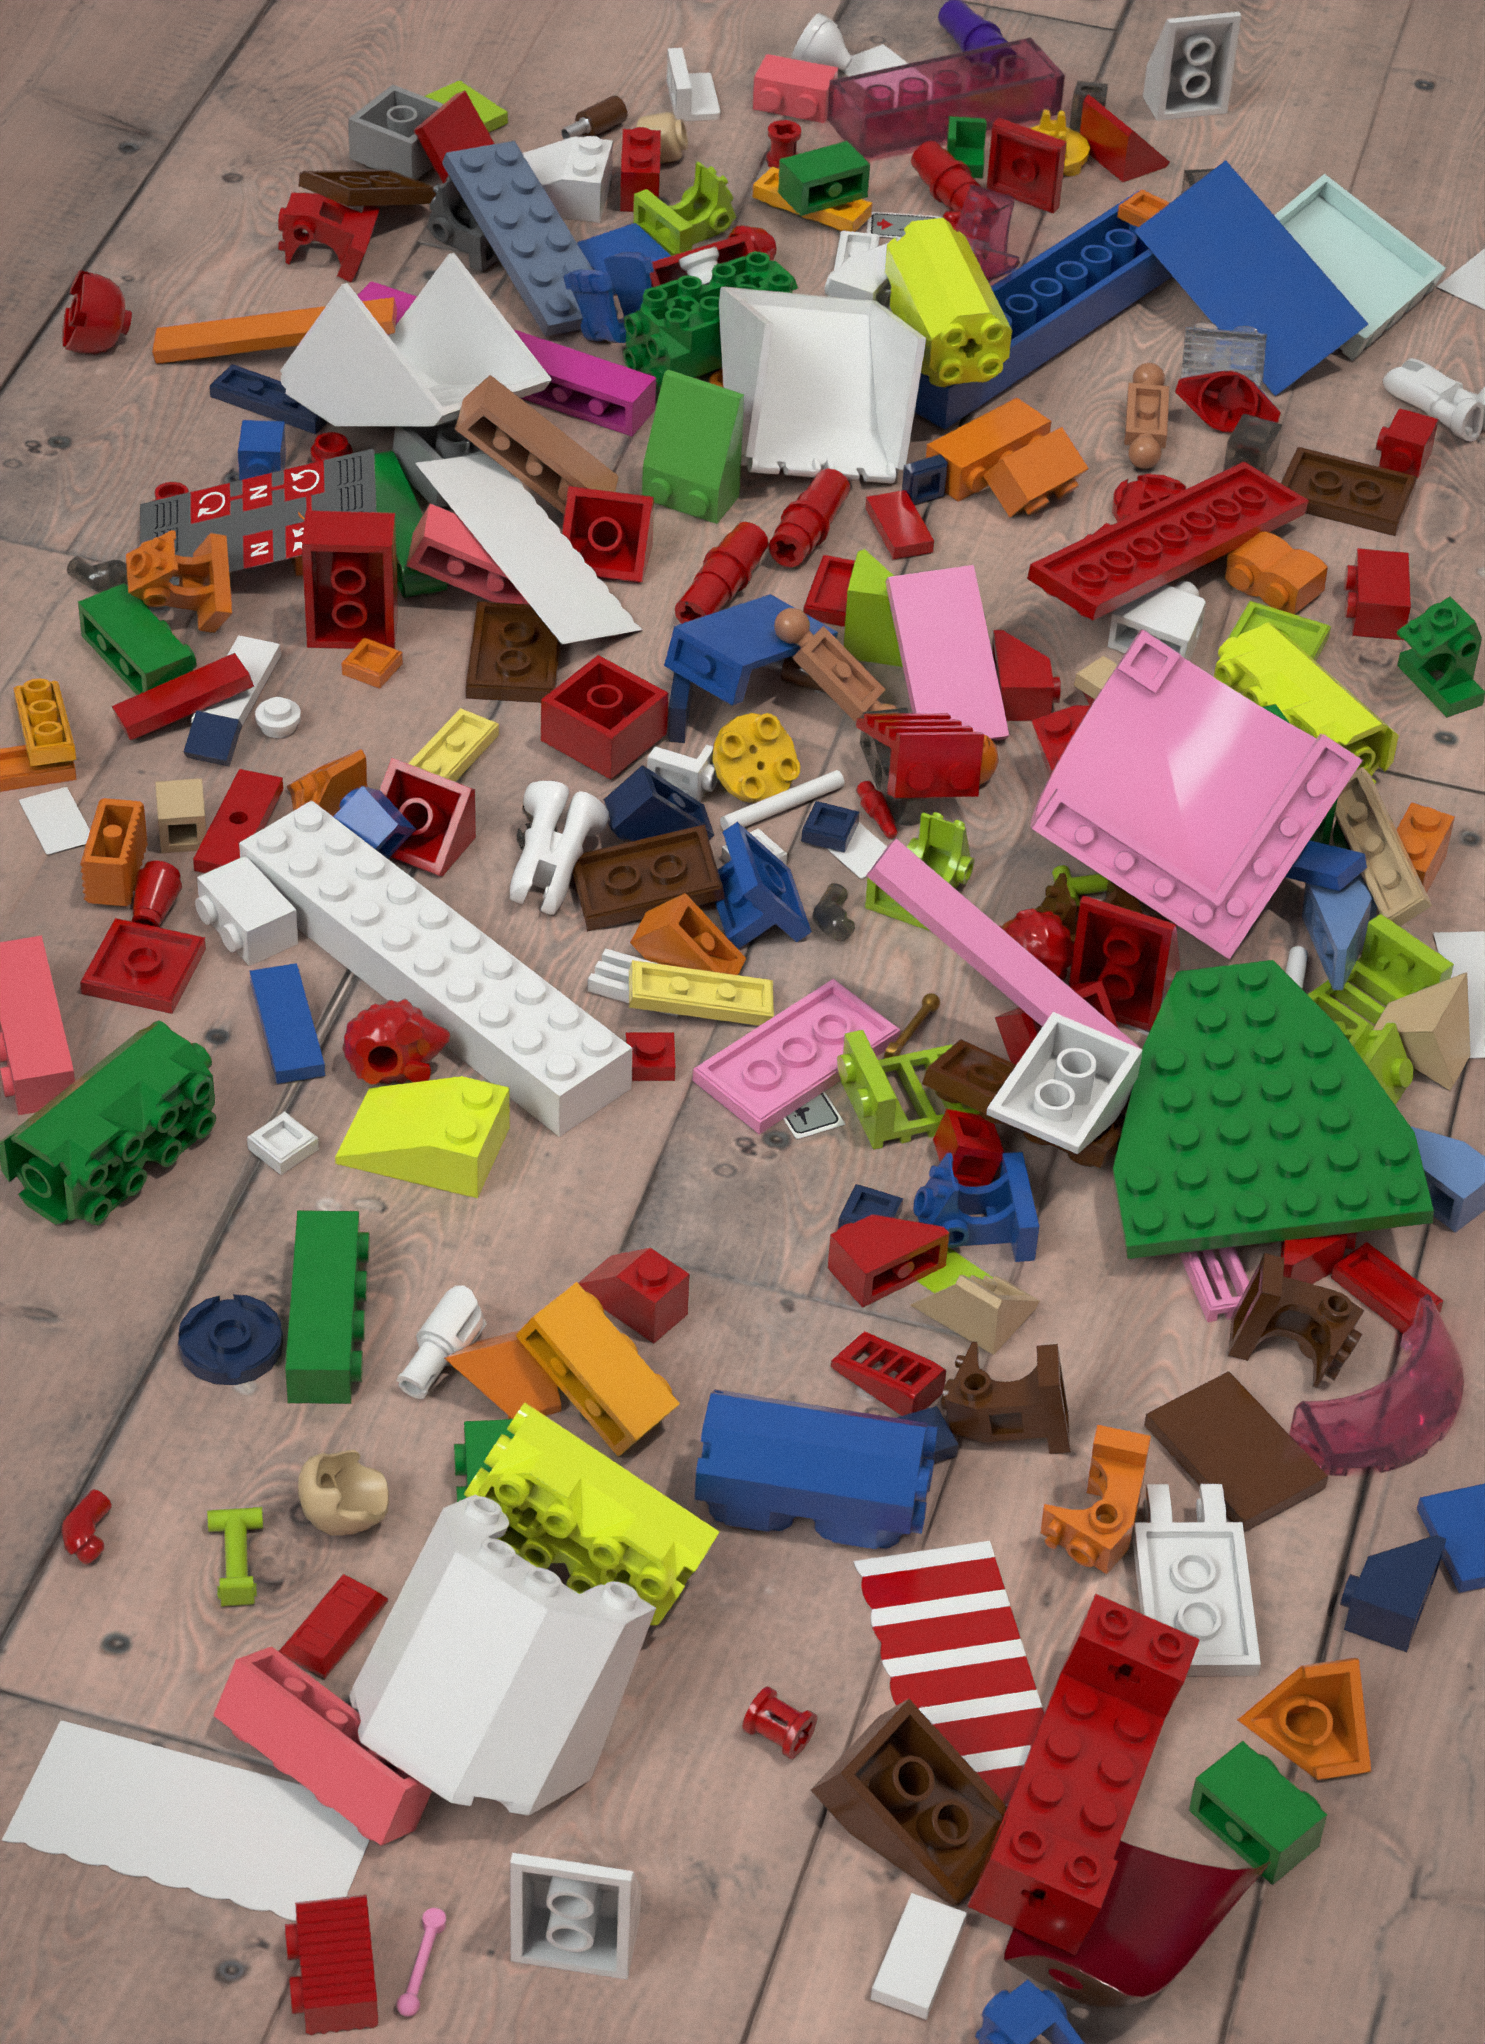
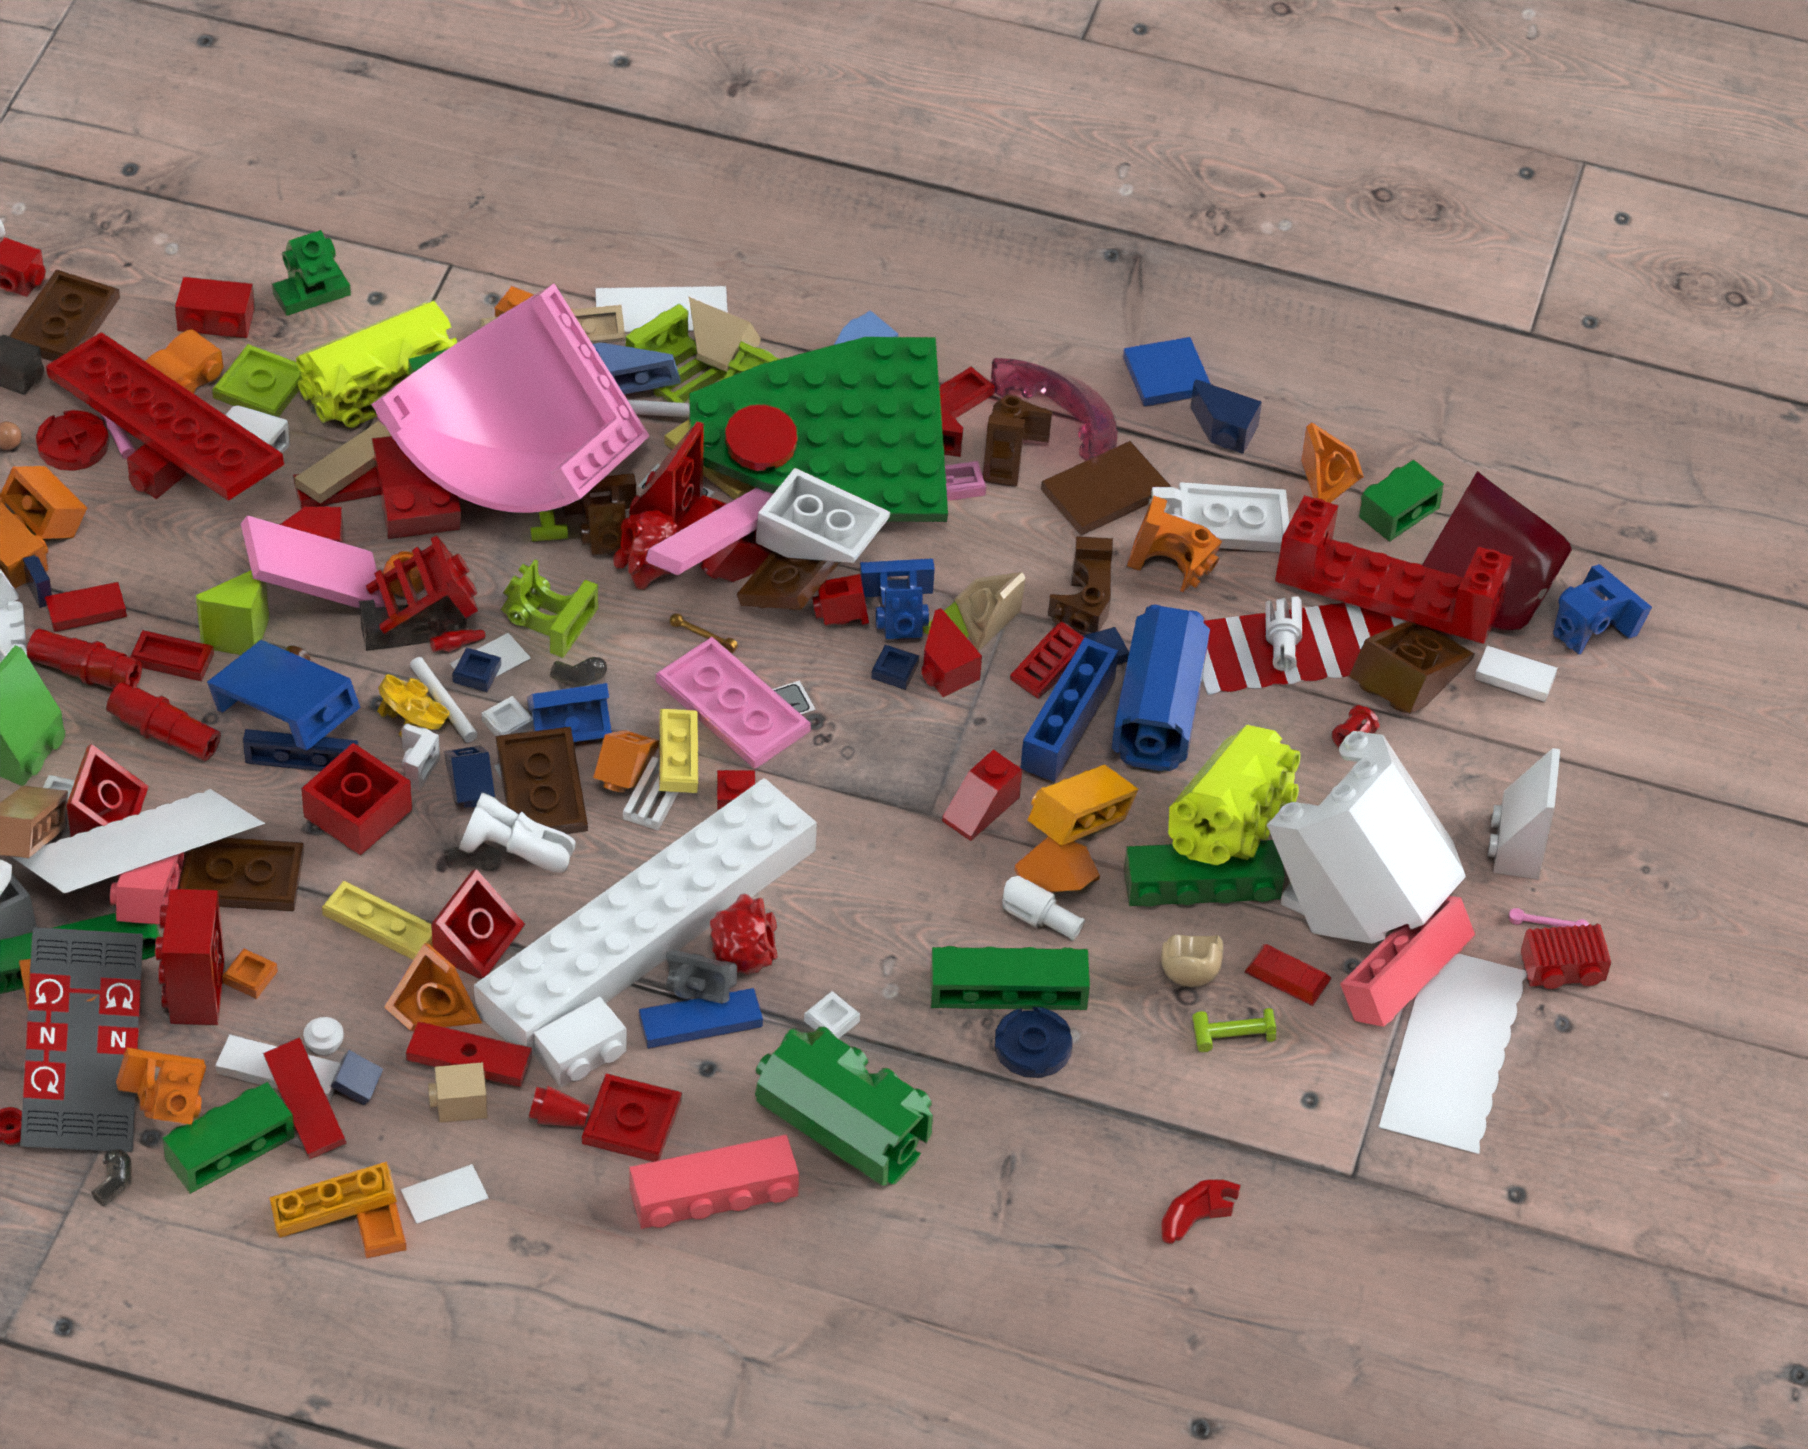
camera: 90 degrees left, 5 degrees up
(80, 1525) = (1219, 1120): red arm -> none
(114, 852) = (518, 1128): orange brick -> none
(329, 1002) = (700, 976): none -> dark grey hips
(374, 820) = (488, 949): brick -> none
(430, 1133) = (828, 920): neon yellow slope -> none
(762, 1360) = (1069, 709): none -> blue brick
(830, 665) = (317, 640): nougat plate -> none
(874, 1097) = (782, 647): lime plate -> none
(966, 1639) = (1283, 631): none -> white arm
(1200, 1024) = (760, 437): none -> red tile

